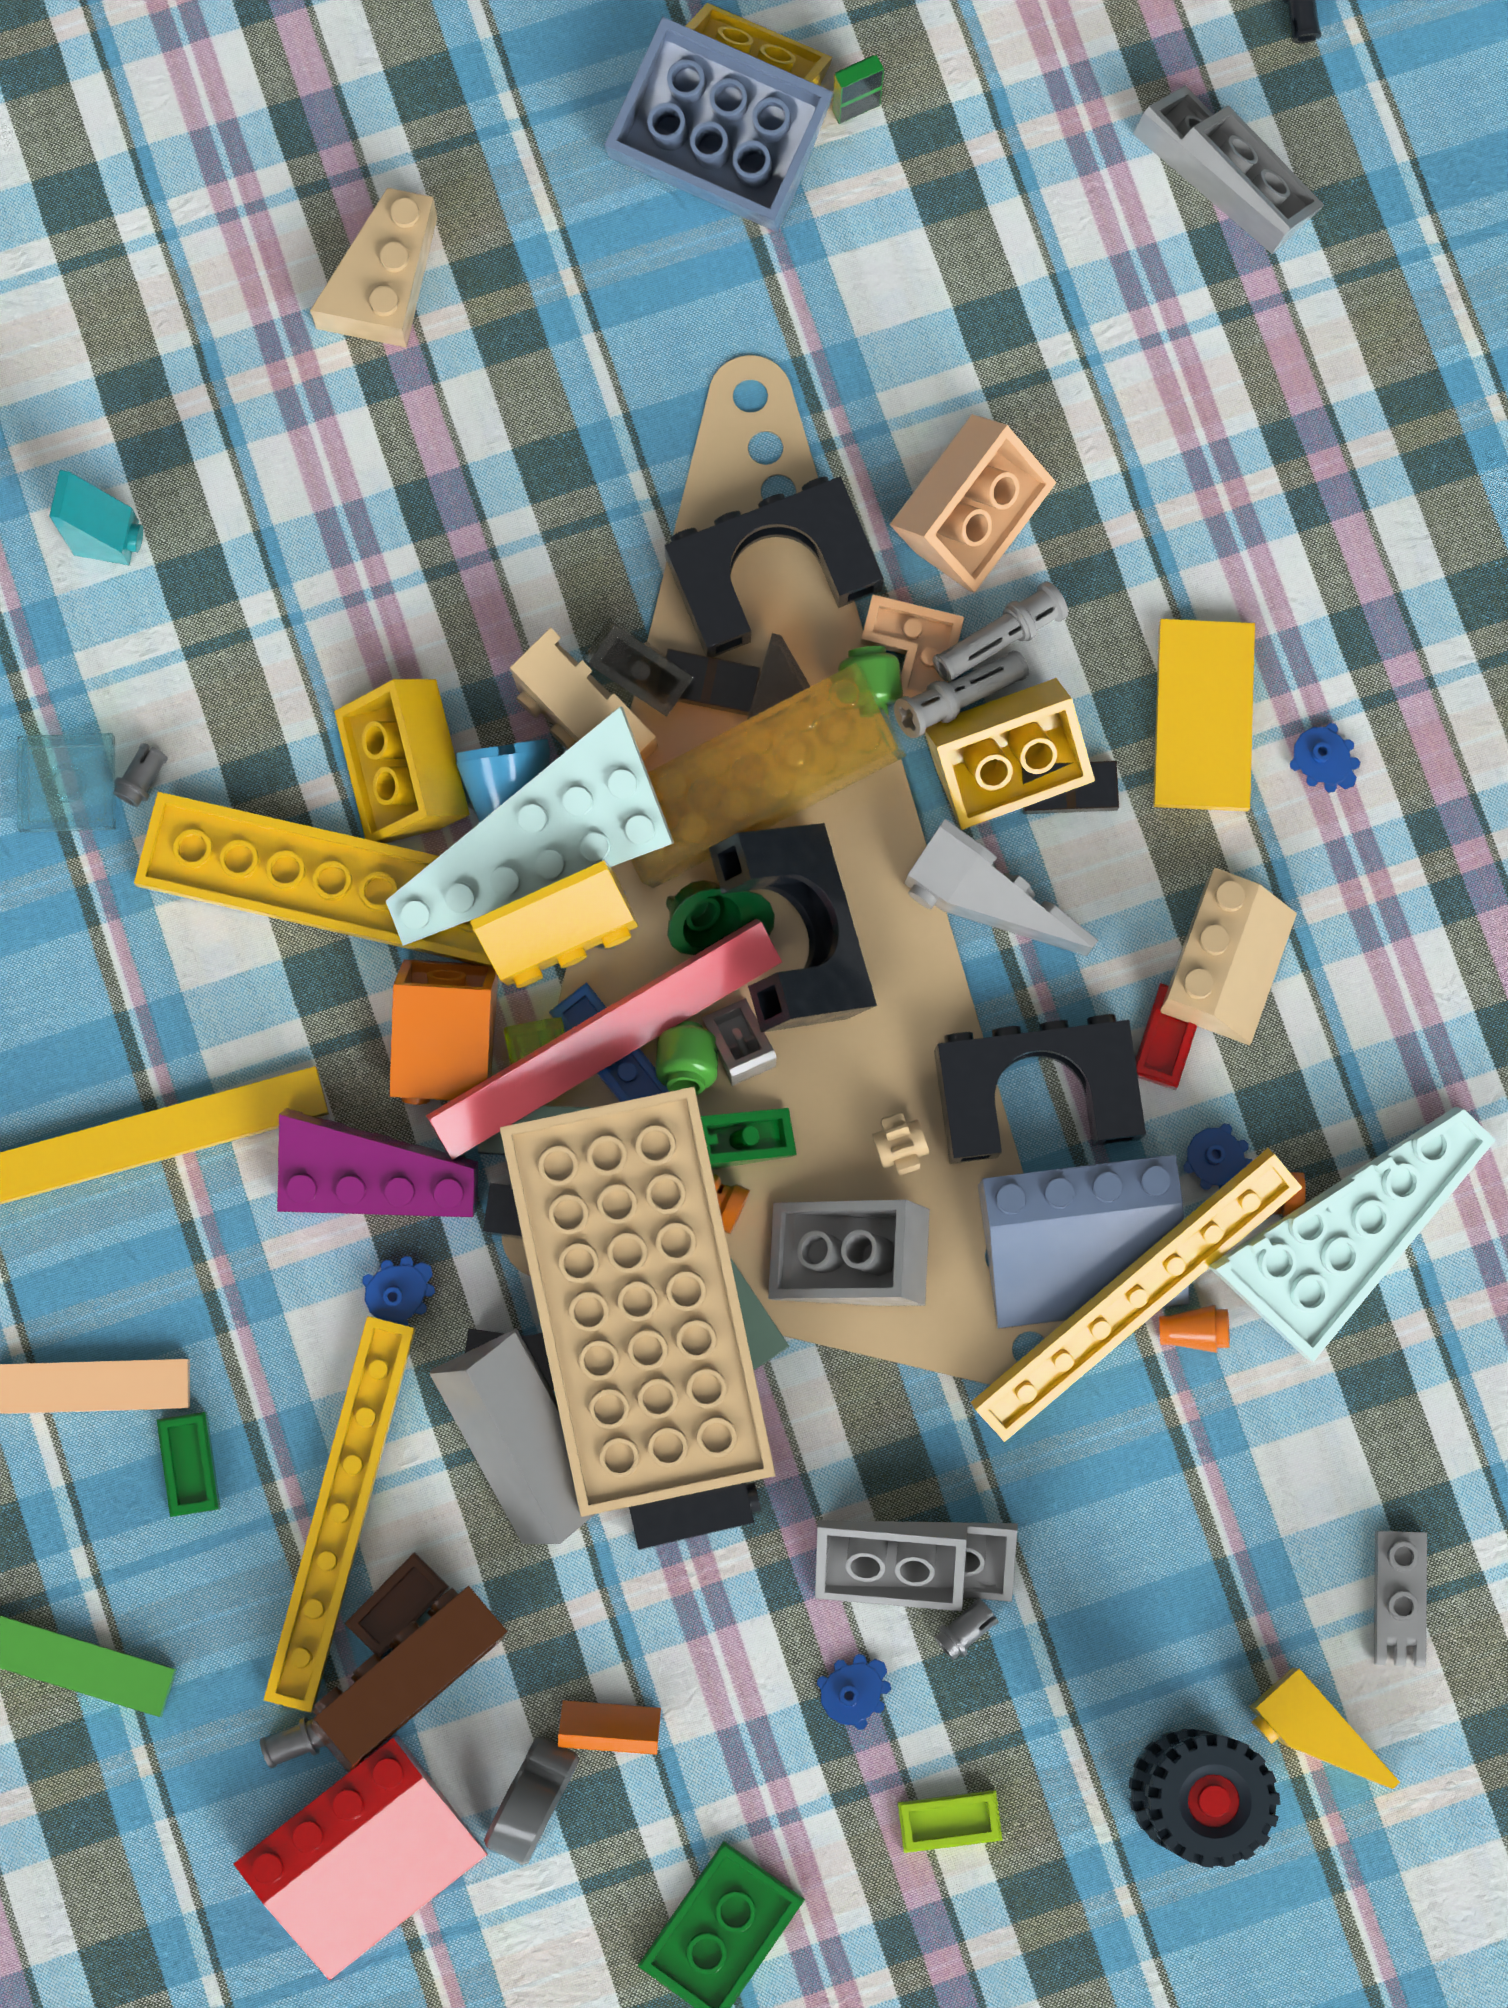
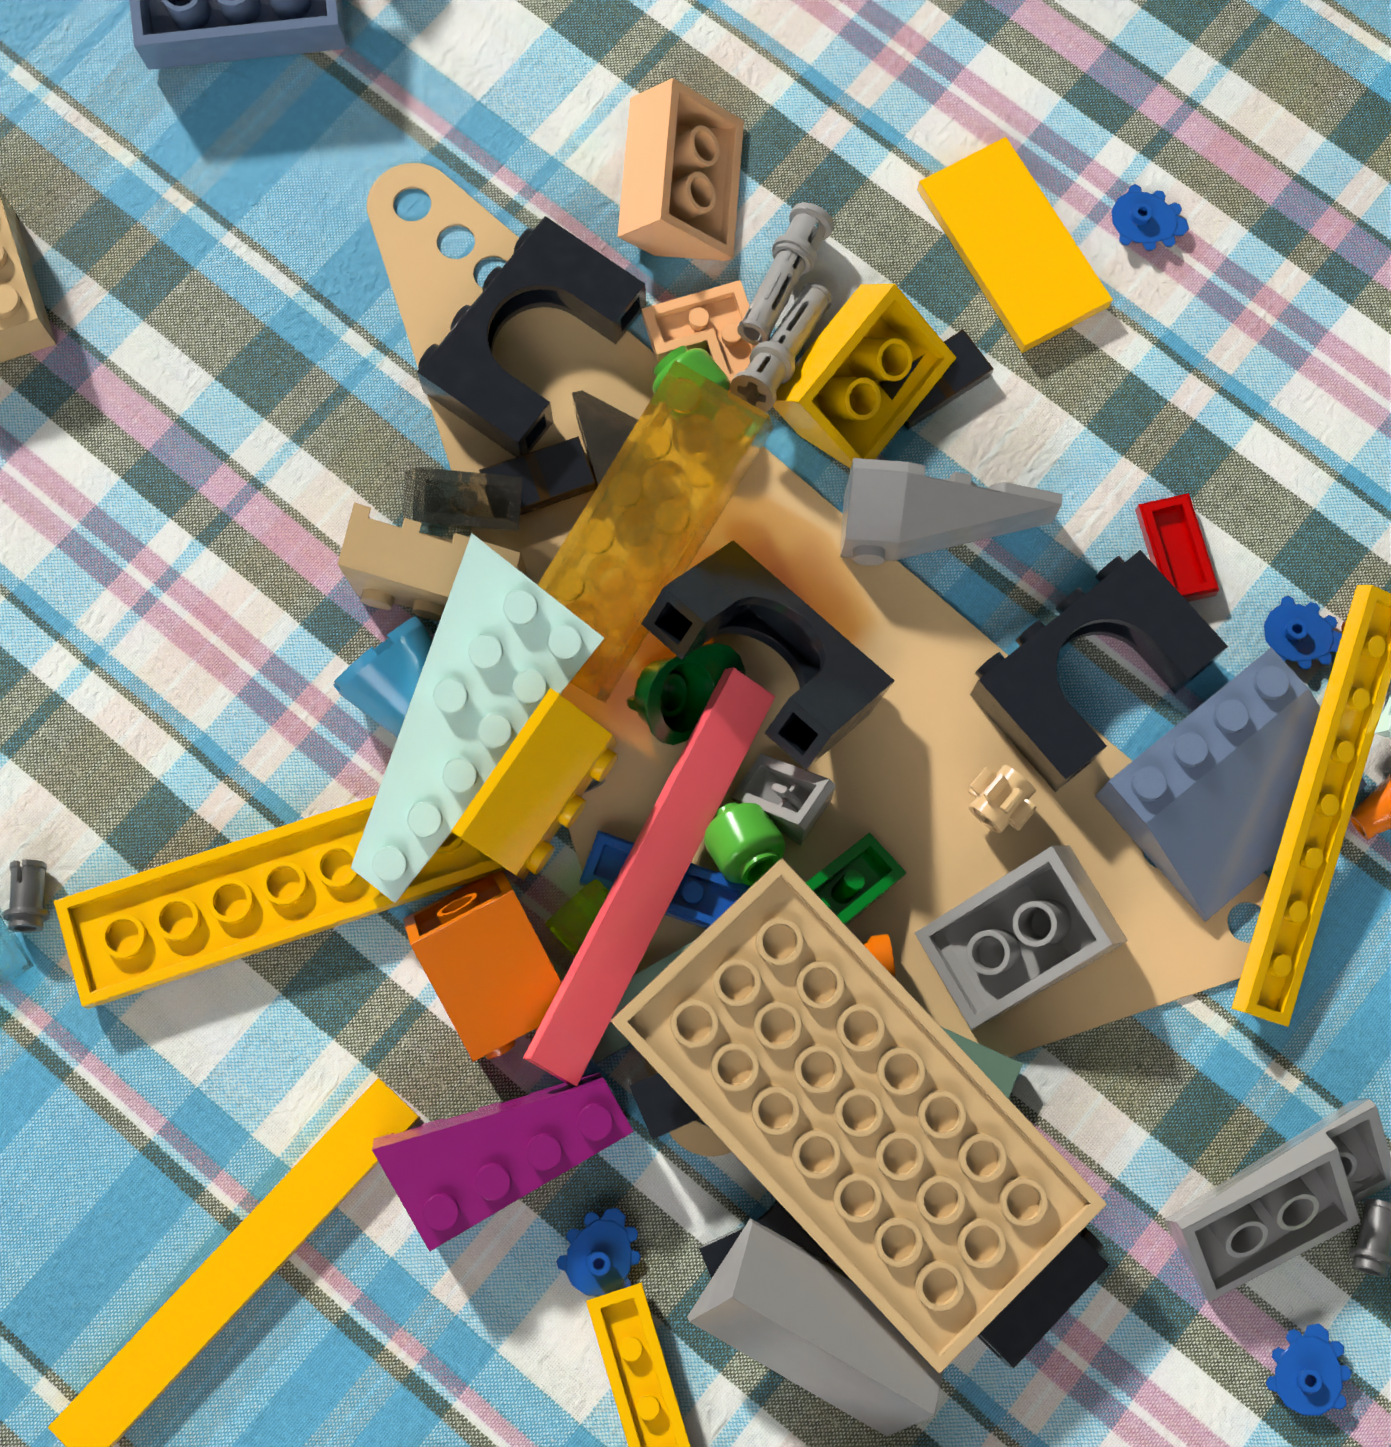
camera: 30 degrees left, 5 degrees down
(401, 760) = (283, 725): yellow slope -> none
(1229, 957) = (1183, 441): tan slope -> none

